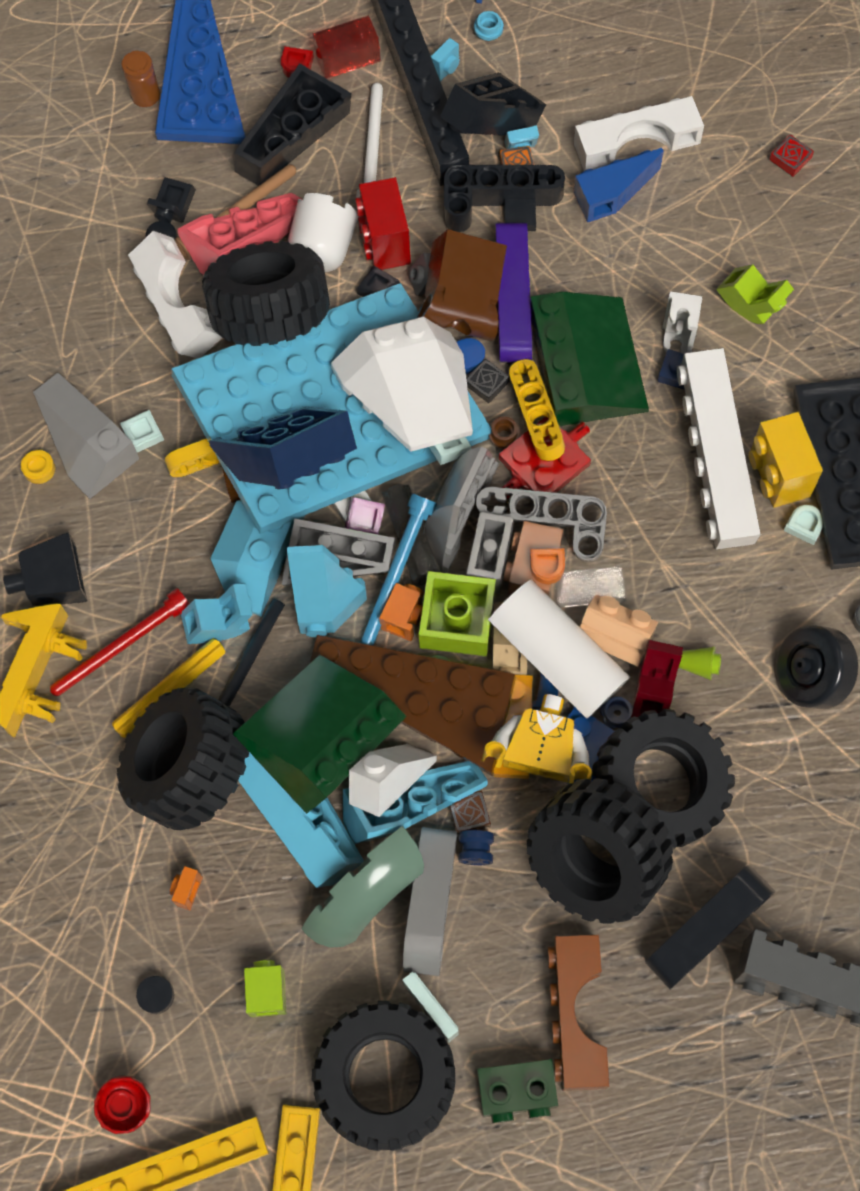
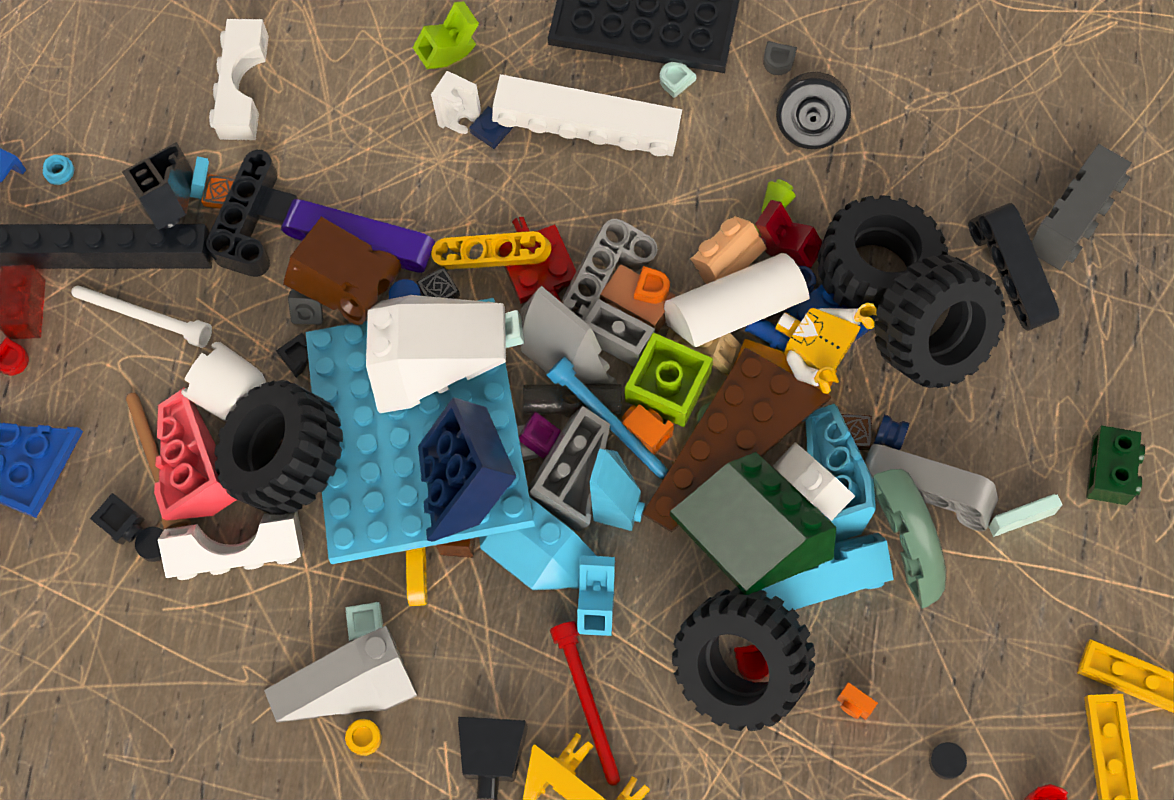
camera: 70 degrees left, 0 degrees up
(177, 679) = (648, 667): yellow axle -> none
(251, 652) = (640, 582): black bar -> none
(265, 989) = (972, 655): lime brick -> none
(290, 124) = (81, 372): black wedge -> none
(332, 1070) = (1111, 540): black tyre -> none
(383, 224) = (243, 321): red brick -> none
(446, 58) = (77, 214): medium azure plate -> none
(504, 424) = (498, 281): reddish brown plate -> none
(581, 586) = (676, 261): clear tile -> none
(581, 1061) = (1020, 386): dark orange arch -> none
(587, 357) = (449, 194): dark green slope -> none
(610, 187) = (286, 125): blue slope -> none
(785, 460) = (620, 65): yellow brick -> none

